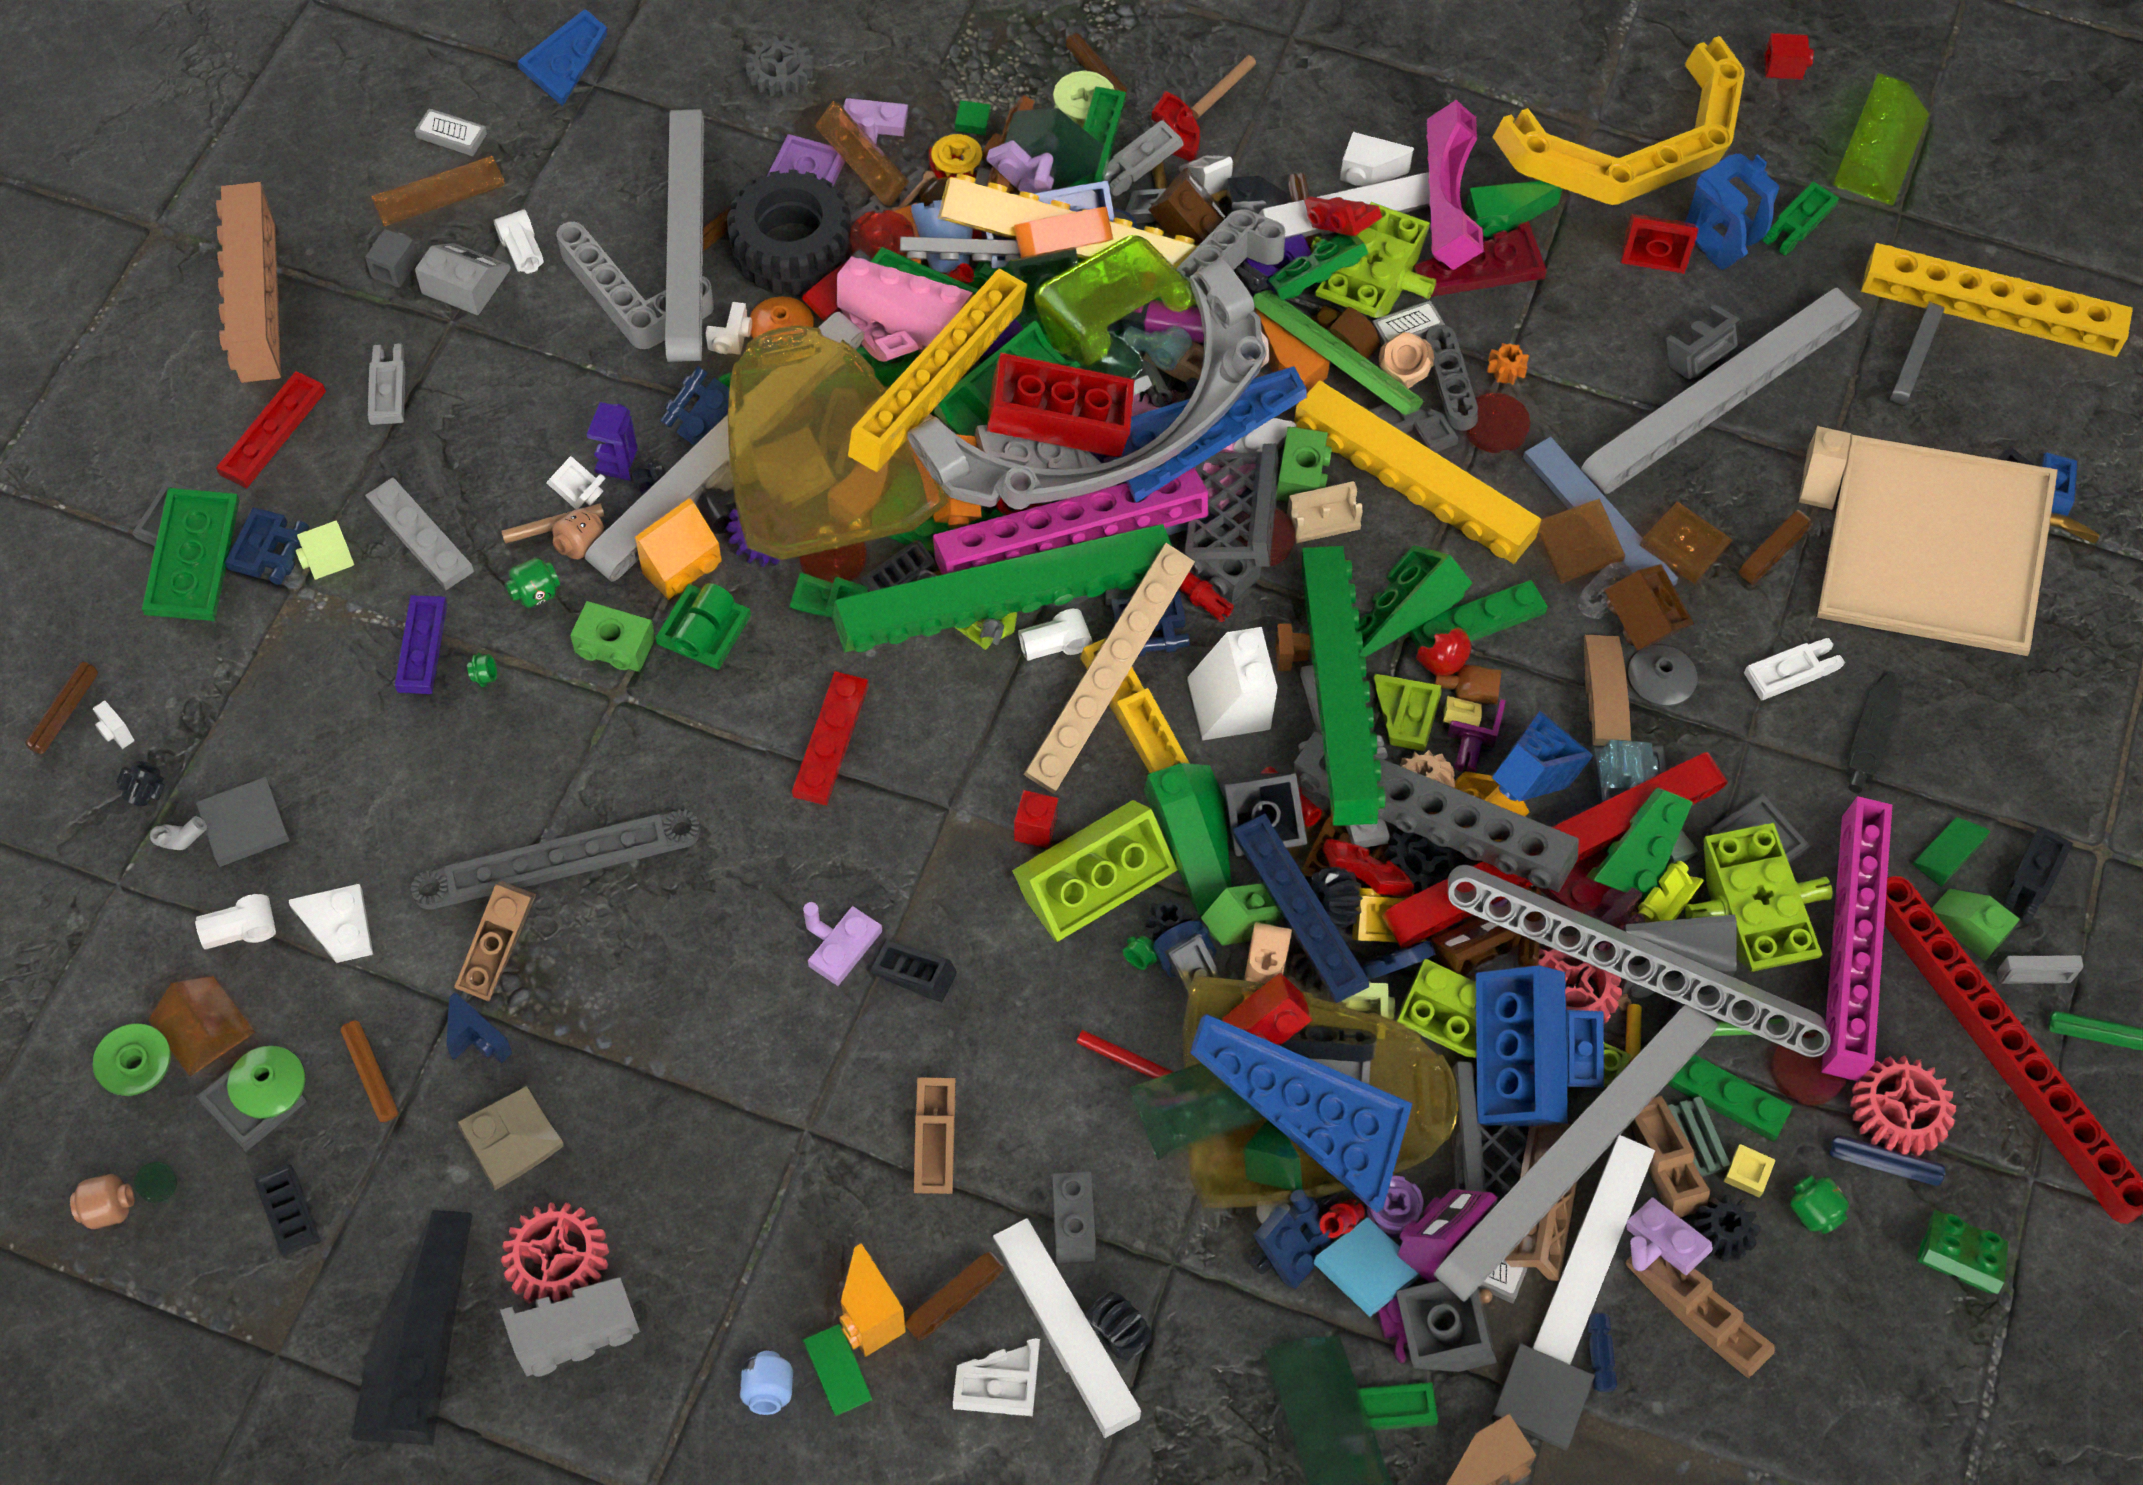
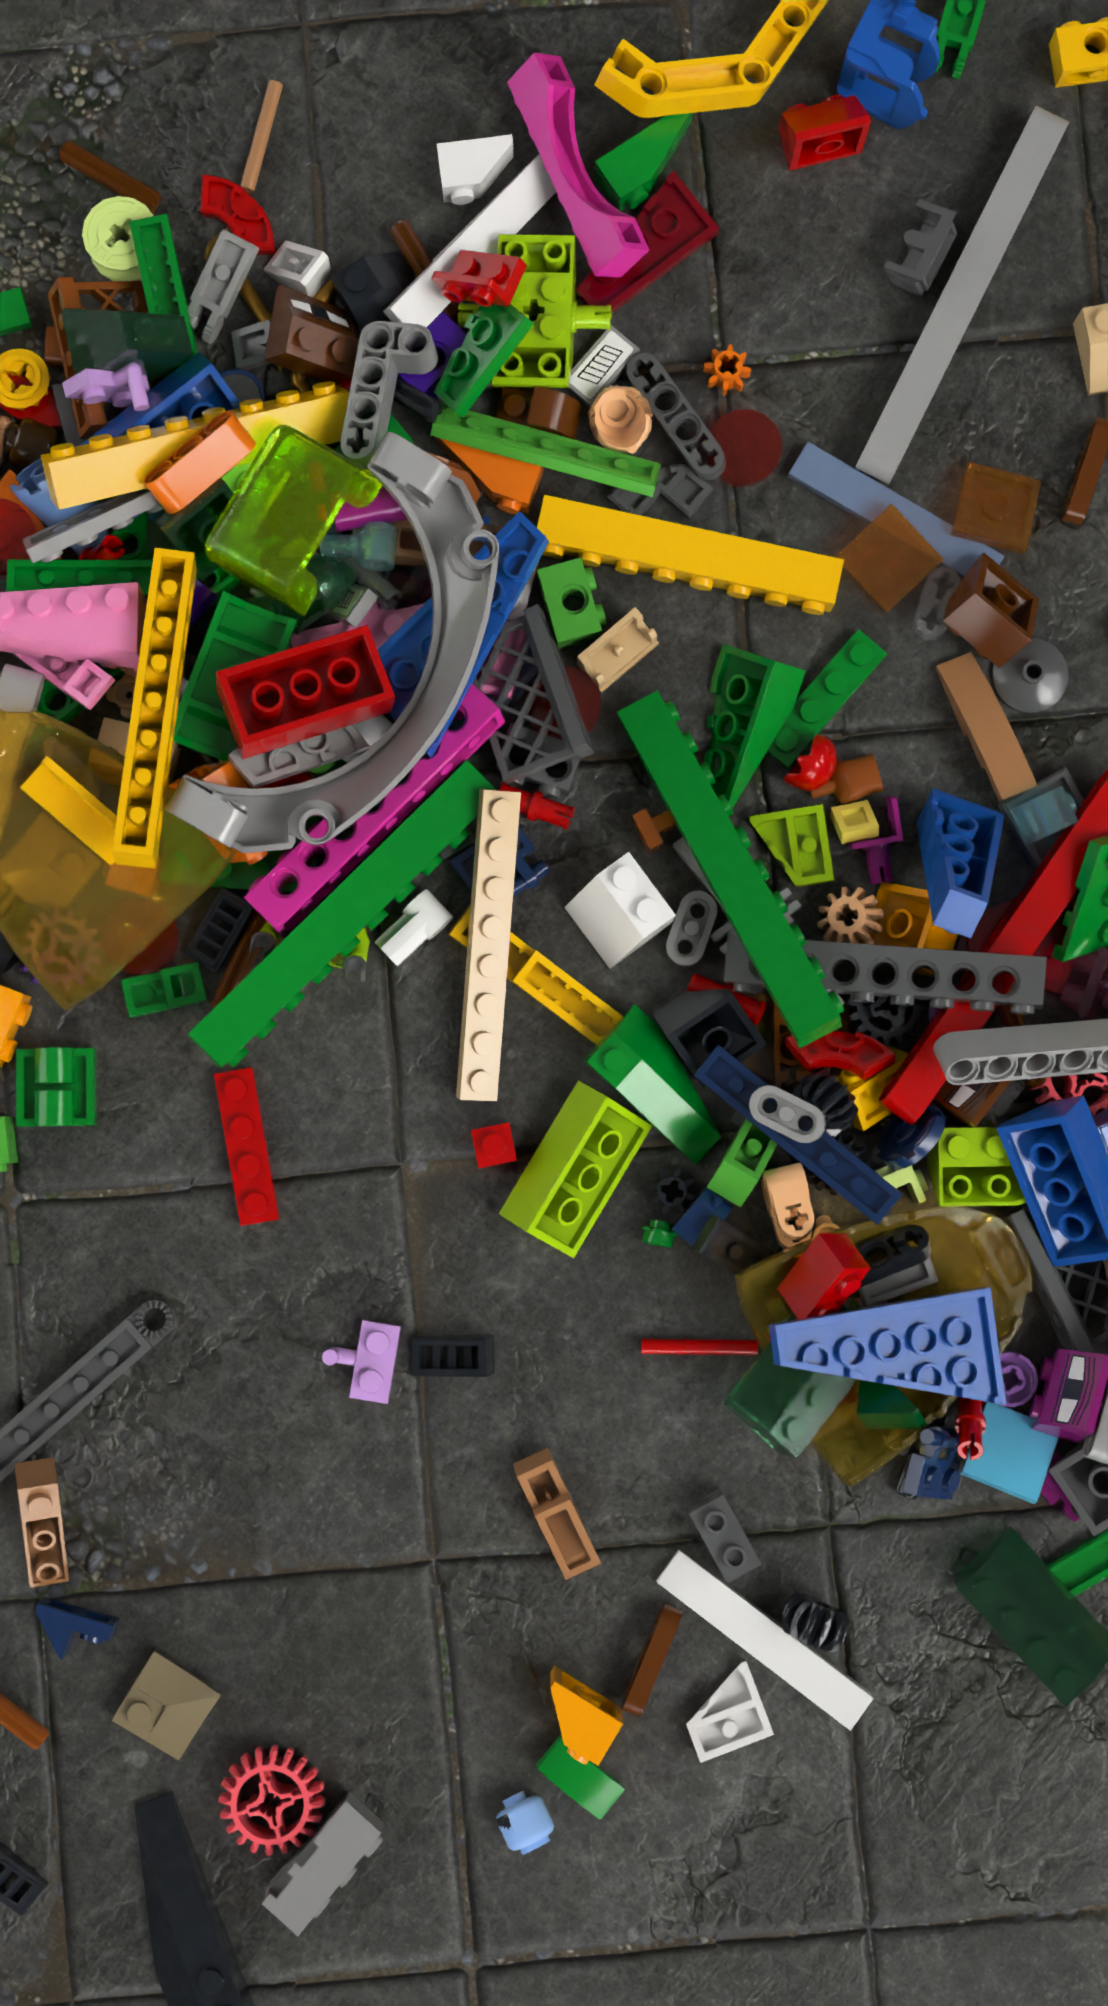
camera: 25 degrees left, 25 degrees up
(834, 418) = (73, 807): none -> yellow panel
(1283, 735) = (691, 929): none -> light grey plate
(1300, 880) = (788, 1114): none -> light grey plate

